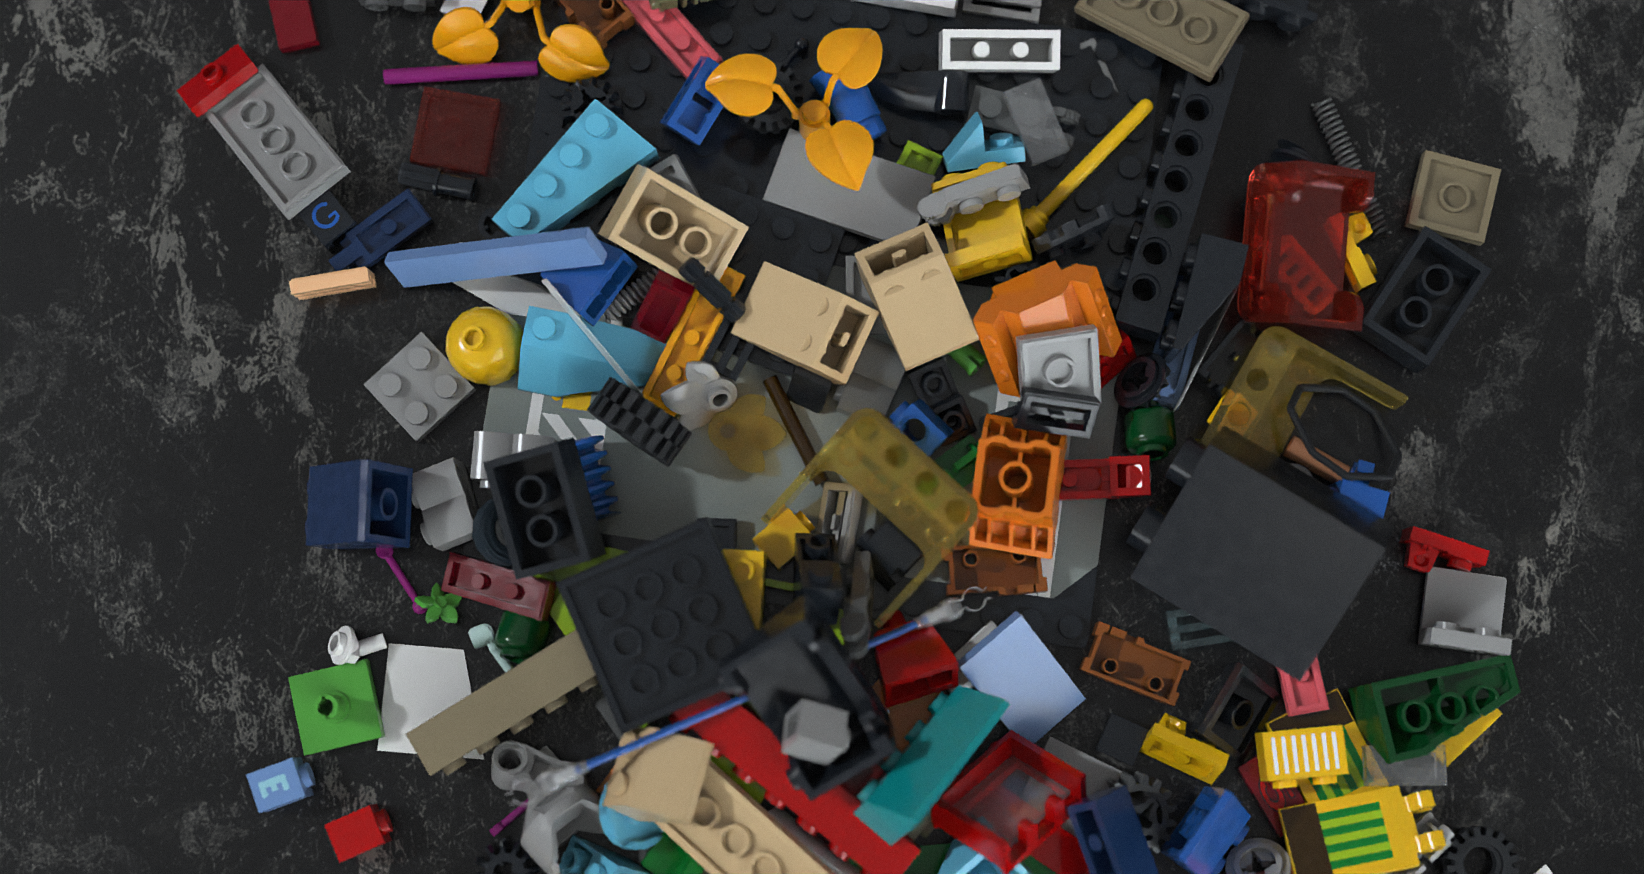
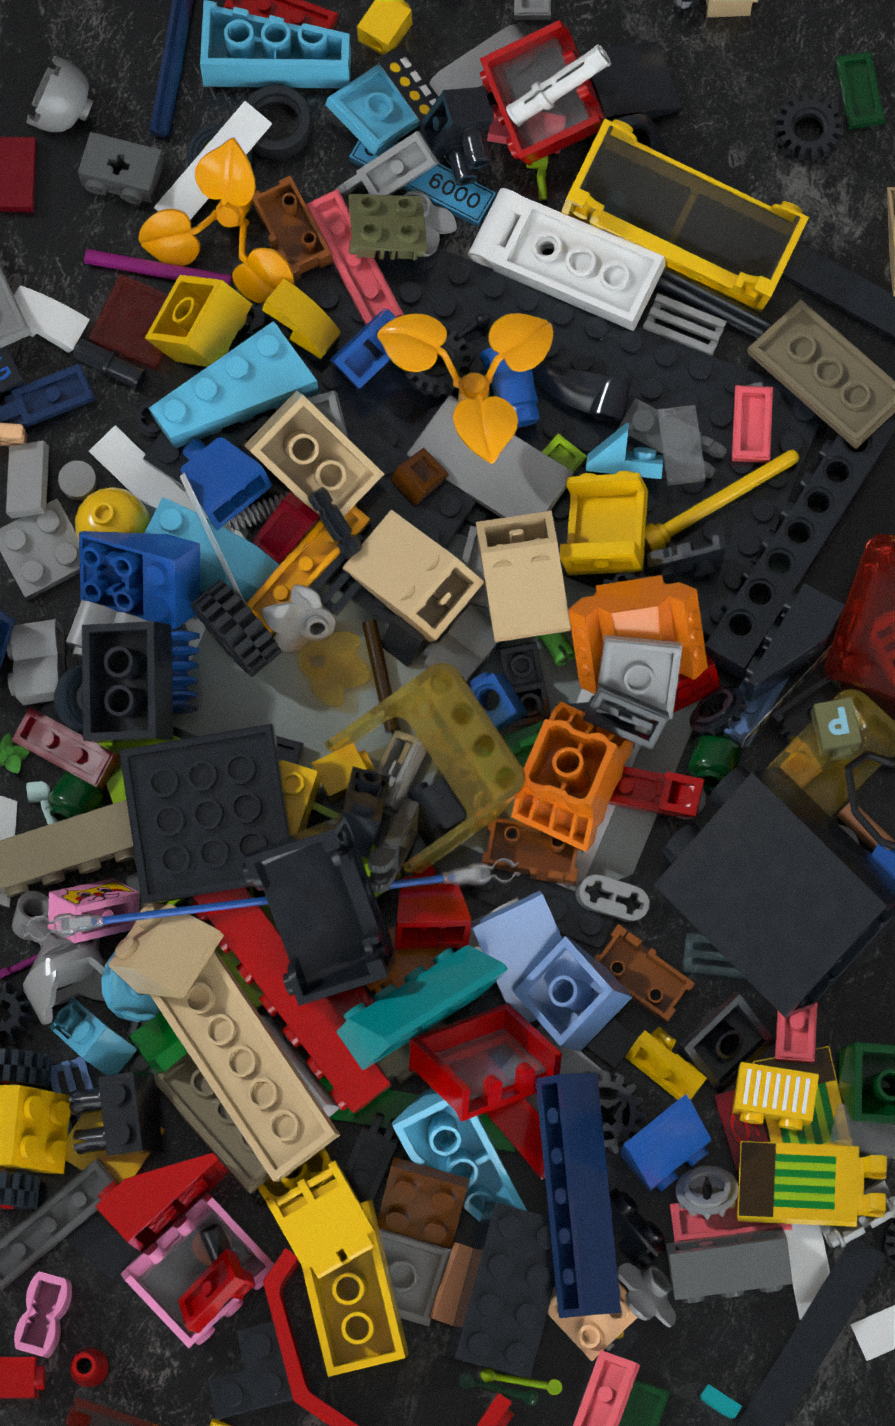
camera: 20 degrees right, 5 degrees down
(365, 149) = (50, 318): none -> white slope
(386, 320) = (27, 479): none -> light grey tile
(437, 307) = (77, 480): none -> light grey tile
(496, 257) = (143, 444): medium blue tile -> none
(517, 115) = (198, 320): none -> yellow brick
(528, 391) = (141, 574): none -> blue slope
(571, 739) = (96, 898): none -> bright pink brick
(614, 81) = (309, 323): none -> yellow slope
(782, 219) = (419, 476): none -> reddish brown slope
(815, 732) = (319, 943): light grey brick -> none
(972, 194) = (602, 495): light grey hinge -> none
(999, 50) = (664, 370): white brick -> none
(1074, 707) = (572, 995): none -> medium blue slope
(1086, 587) = (608, 906): none -> light grey beam
(1097, 82) = (752, 424): none -> coral tile
(1270, 372) = (836, 728): none -> olive brick

